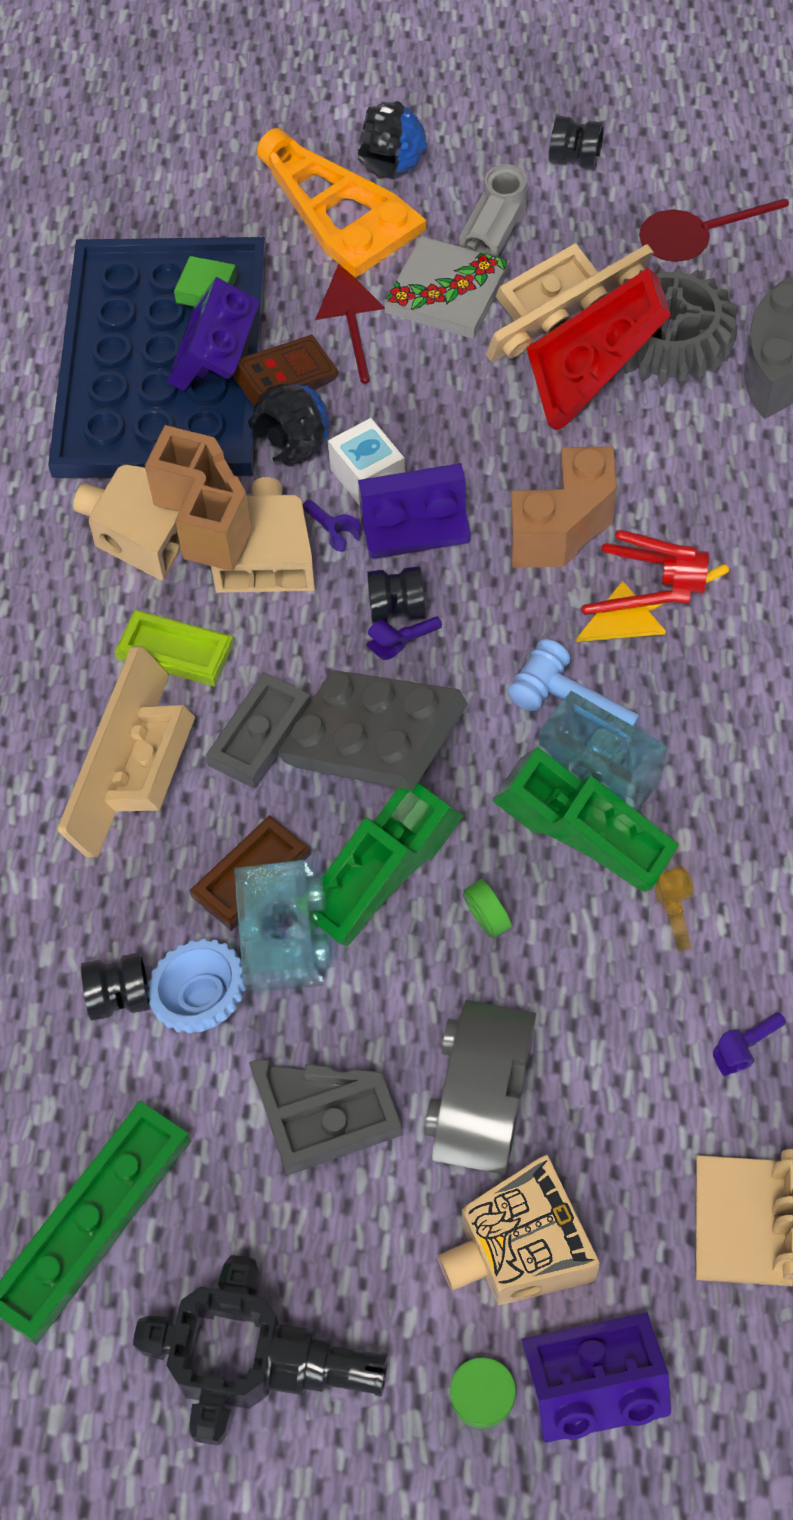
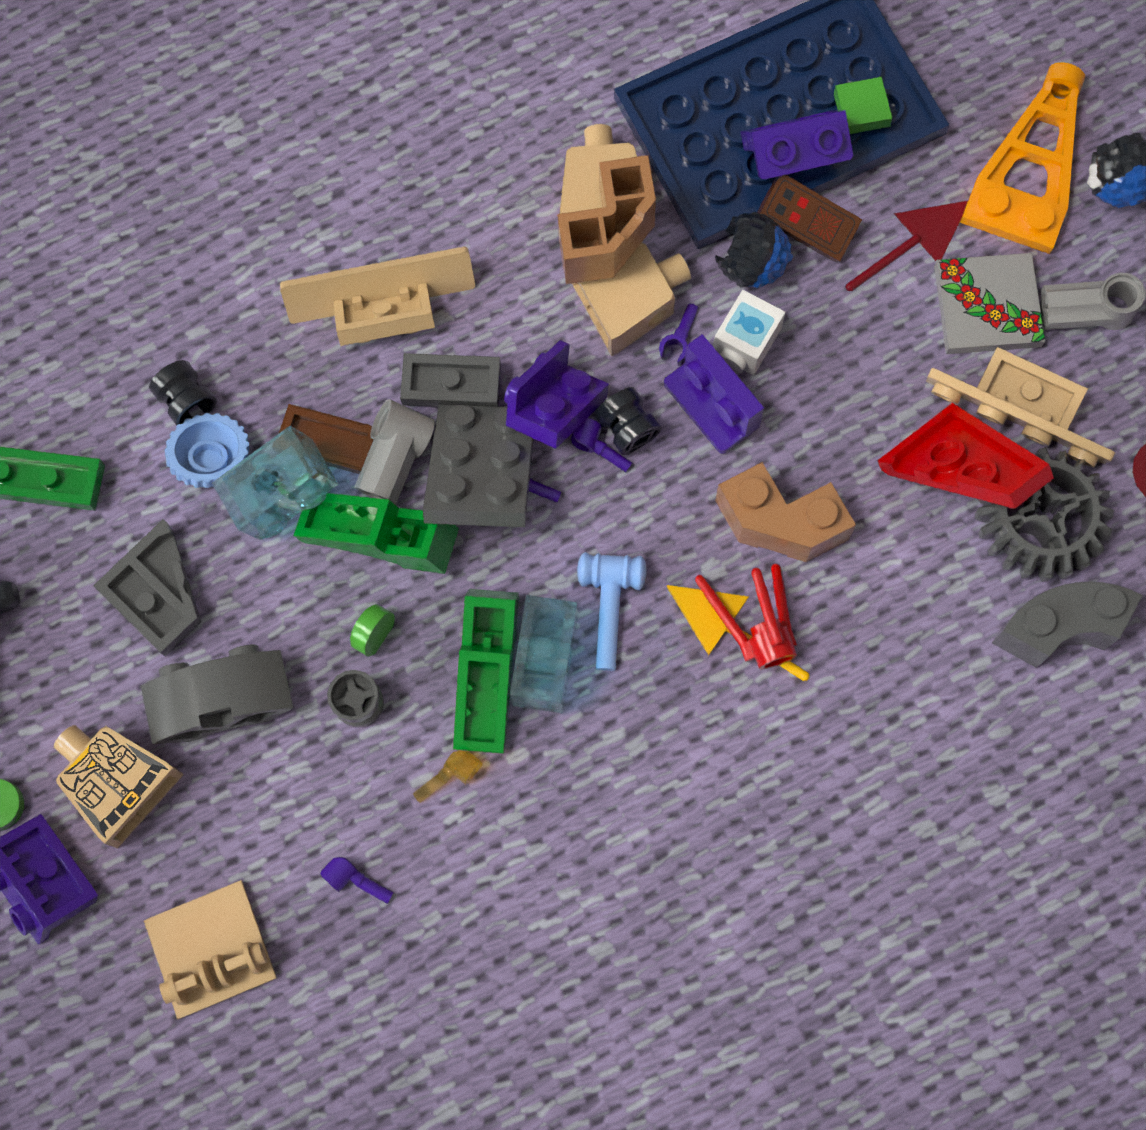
camera: 65 degrees right, 15 degrees up
(177, 646) = (499, 279): lime tile -> none
(297, 795) = (398, 439): none -> light grey piece
(340, 639) = (552, 397): none -> dark purple bracket
(556, 939) = (352, 690): none -> dark grey wheel

